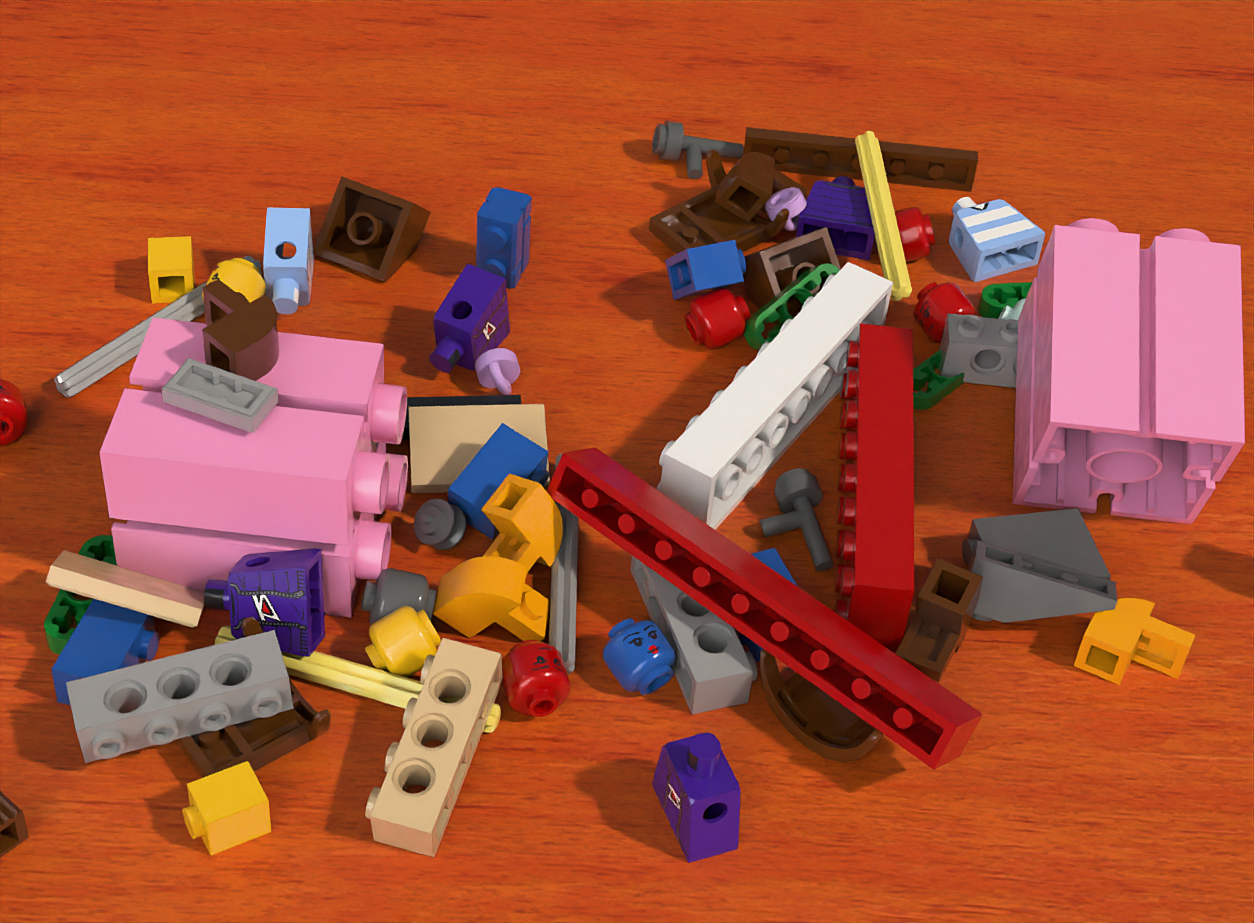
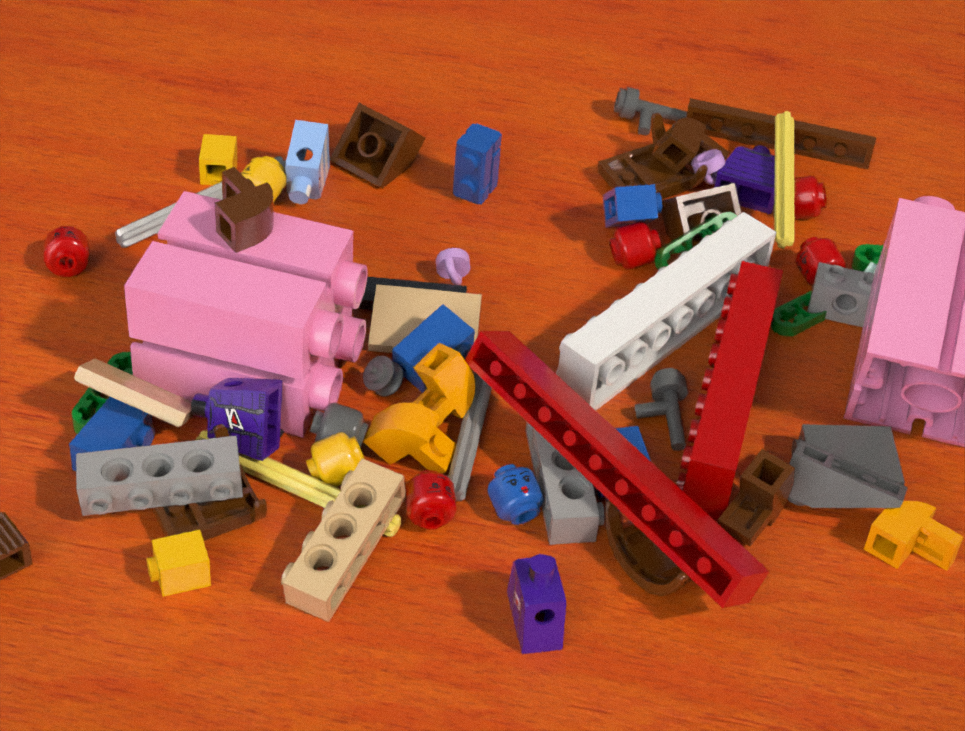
camera: 10 degrees right, 0 degrees up
(220, 395) = (220, 254): light grey plate -> none
(470, 319) = (438, 223): dark purple torso -> none
(993, 238) = (869, 206): light blue torso -> none

